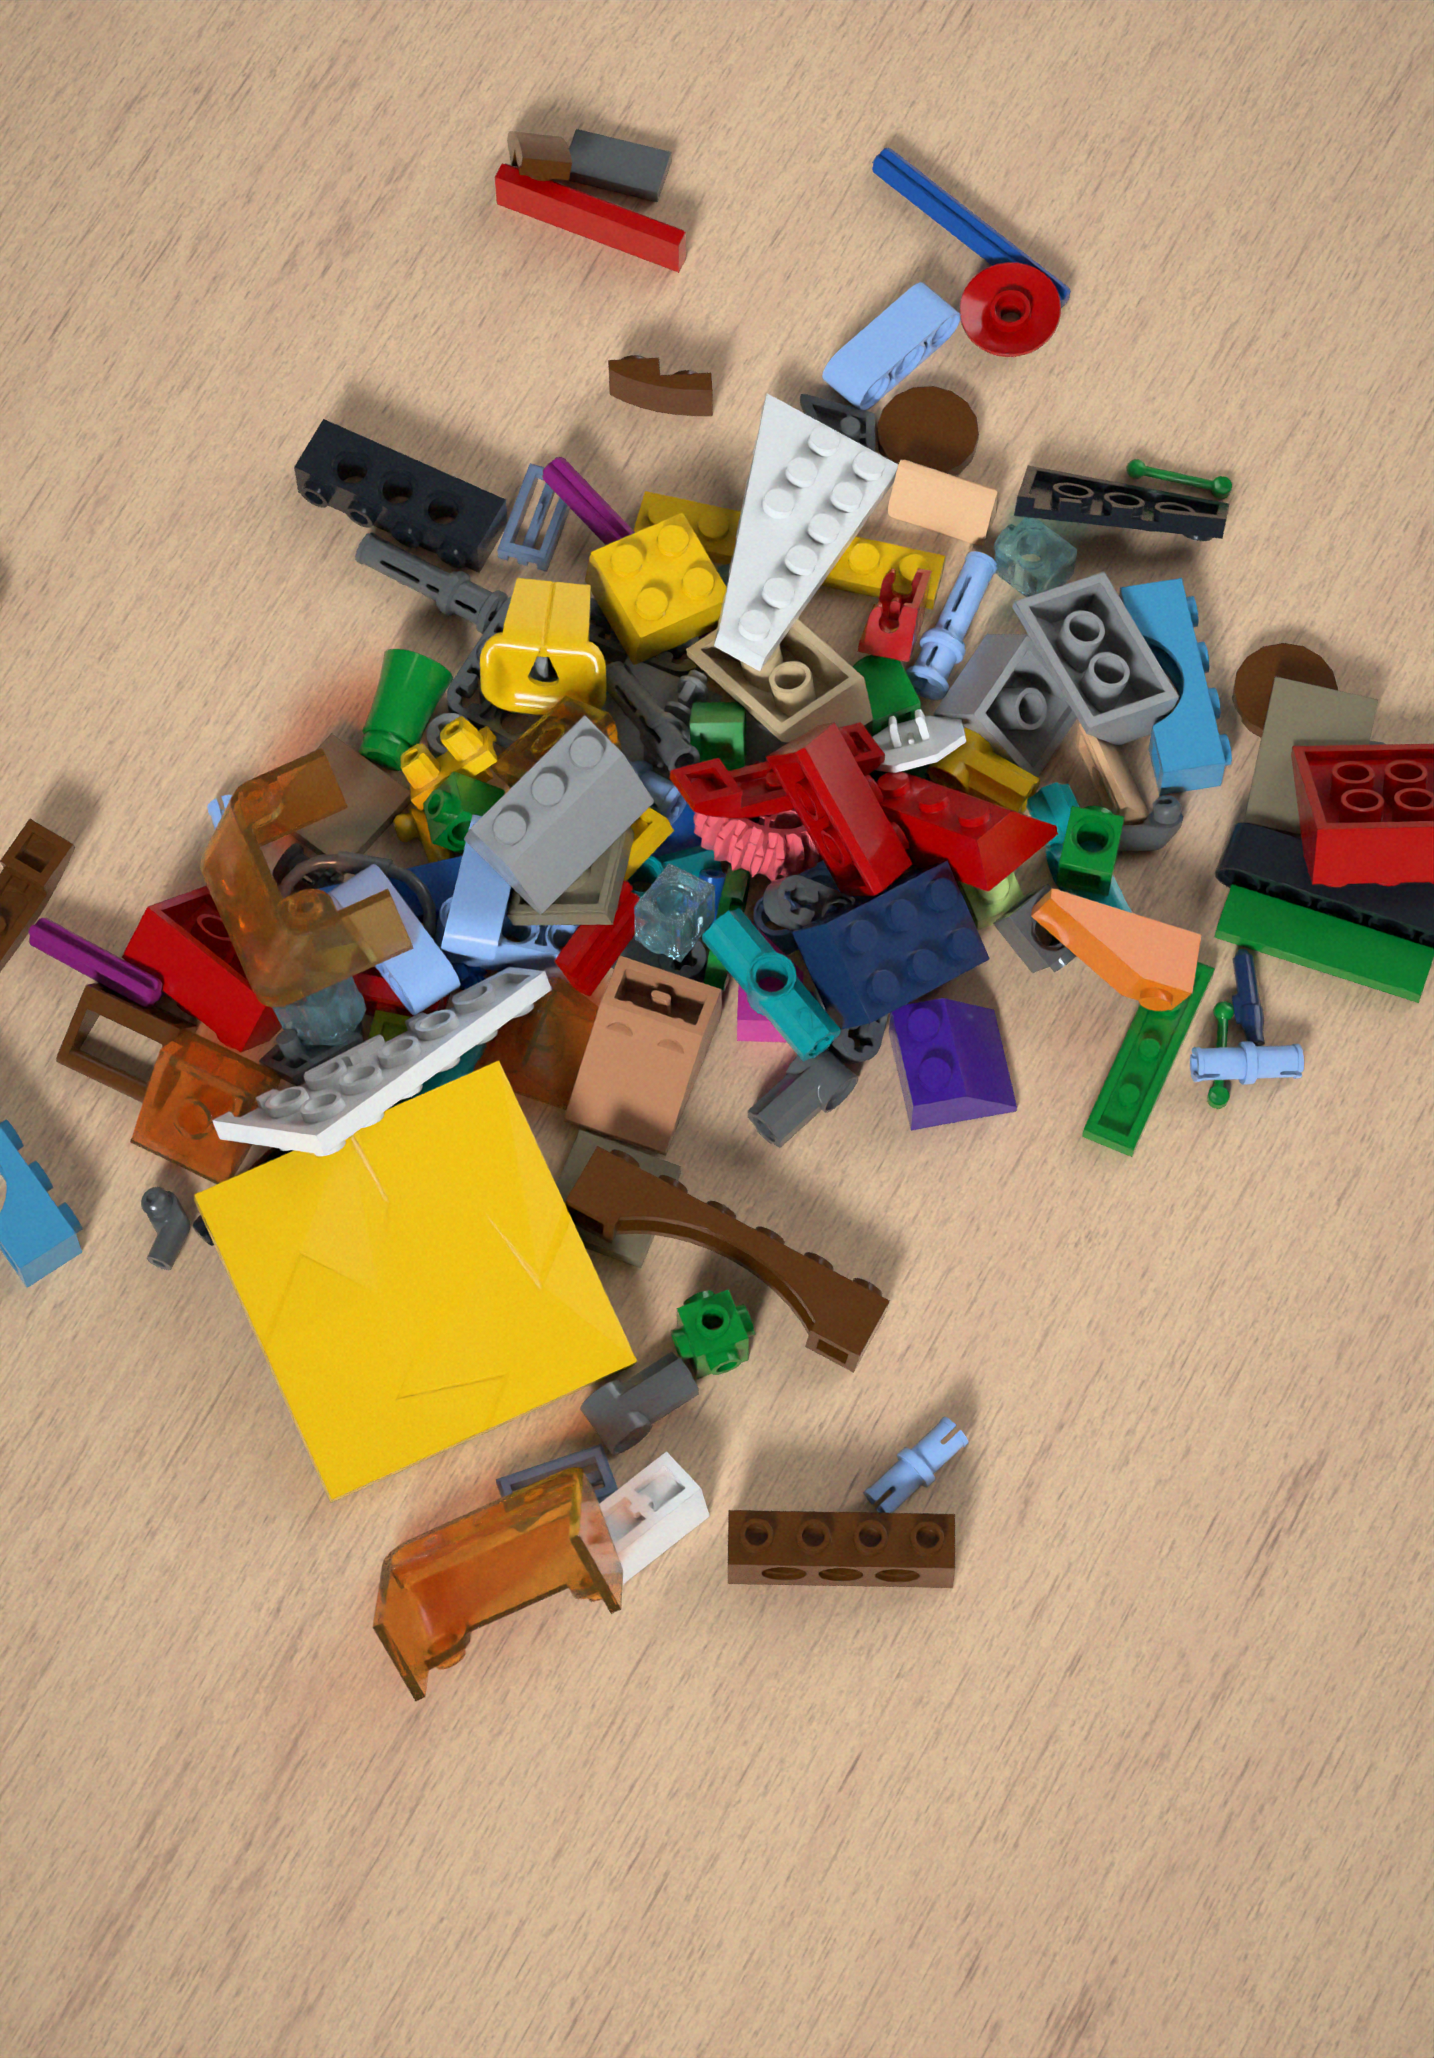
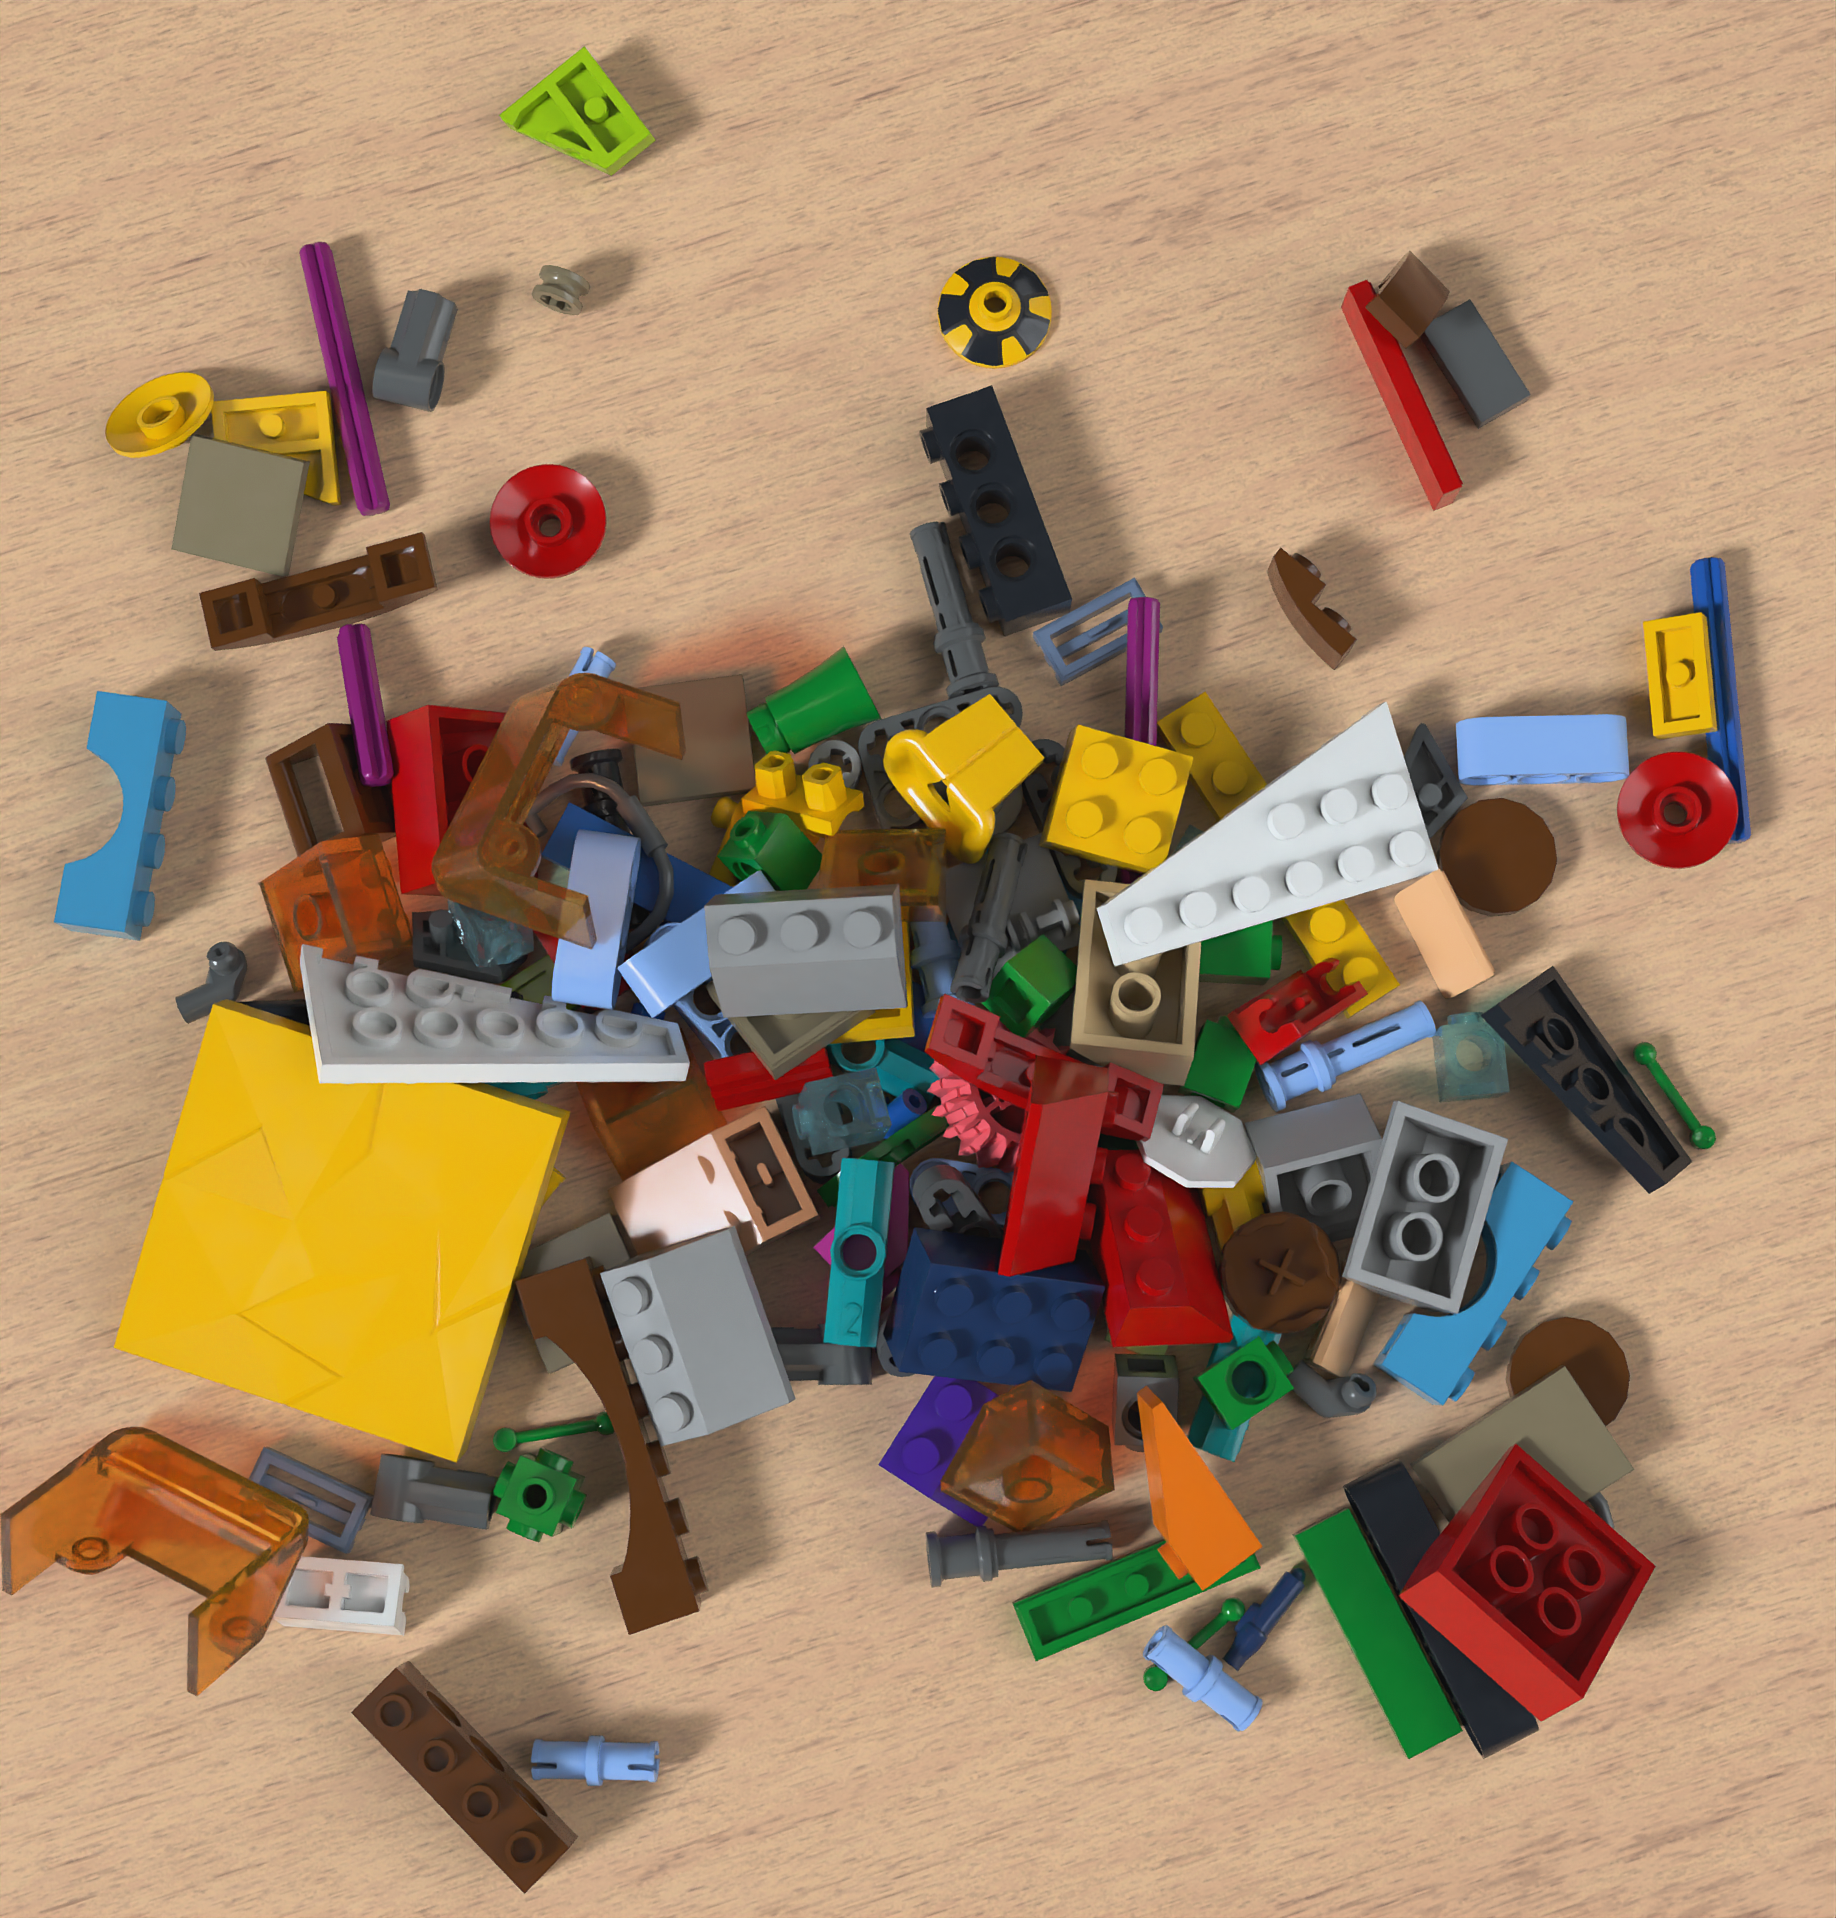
camera: 45 degrees right, 15 degrees up
(102, 729) = (542, 495): none -> red dish
(277, 405) = (991, 337): none -> dish
(653, 1332) = (507, 1438): none -> green hinge
(718, 1132) = (697, 1336): none -> light grey slope
(833, 615) = (1241, 956): none -> green brick
(932, 234) = (1680, 676): none -> yellow plate
(1006, 1022) = (1030, 1459): none -> clear orange slope
(1037, 1111) = (987, 1552): none -> dark grey pin
(1045, 773) = (1279, 1273): none -> reddish brown tile

